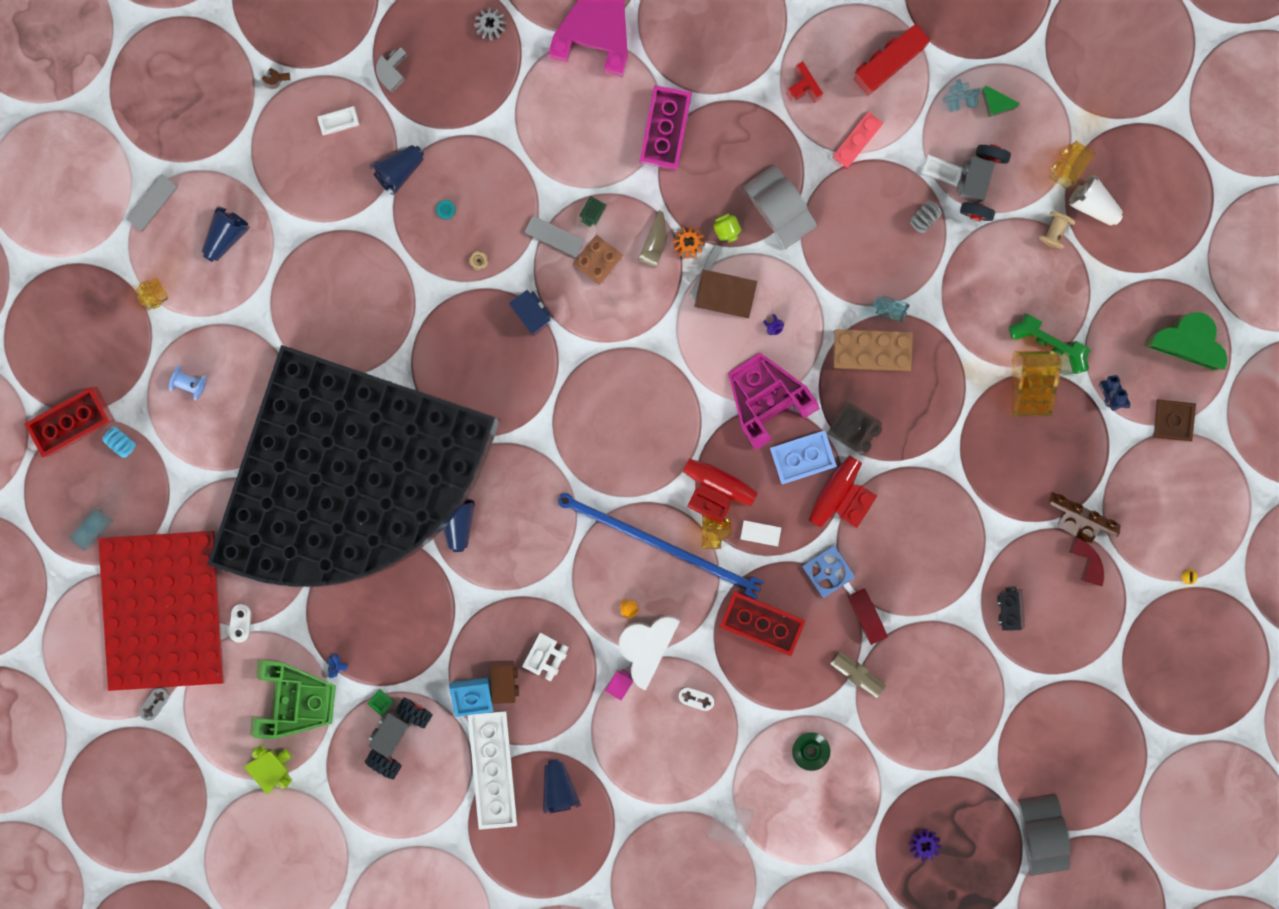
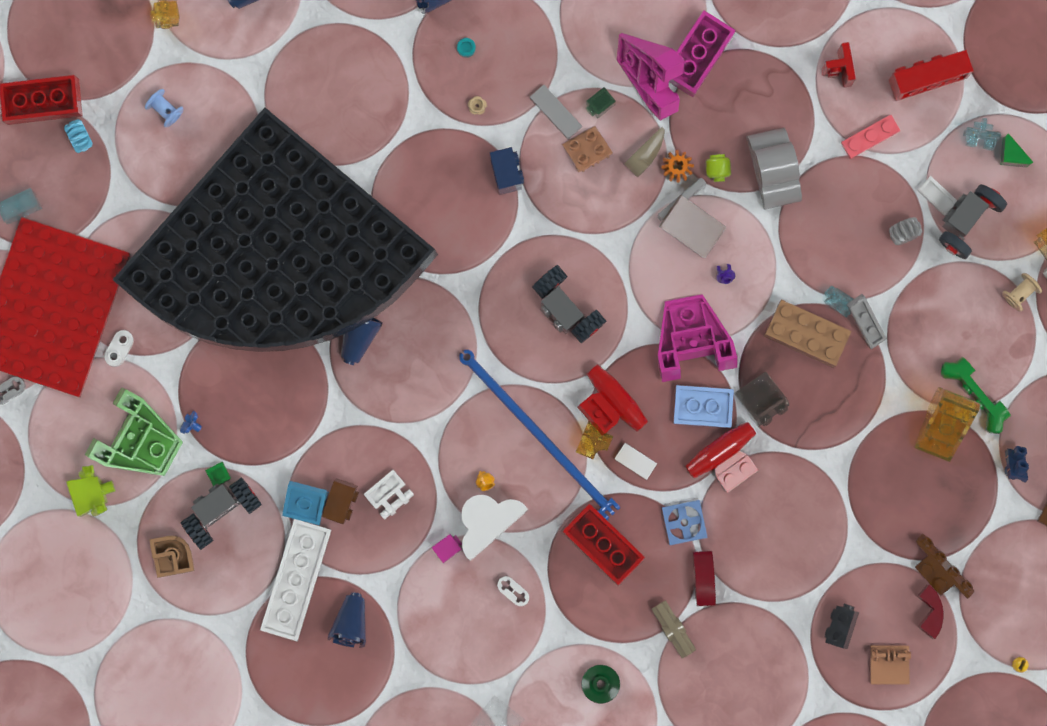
camera: 20 degrees right, 5 degrees down
(369, 795) = (171, 556): none -> medium nougat brick
(629, 164) = (650, 70): none -> dark pink wedge
(635, 421) = (562, 309): none -> brick
(923, 317) = (866, 321): none -> light grey tile
(1069, 625) = (889, 664): none -> nougat hinge

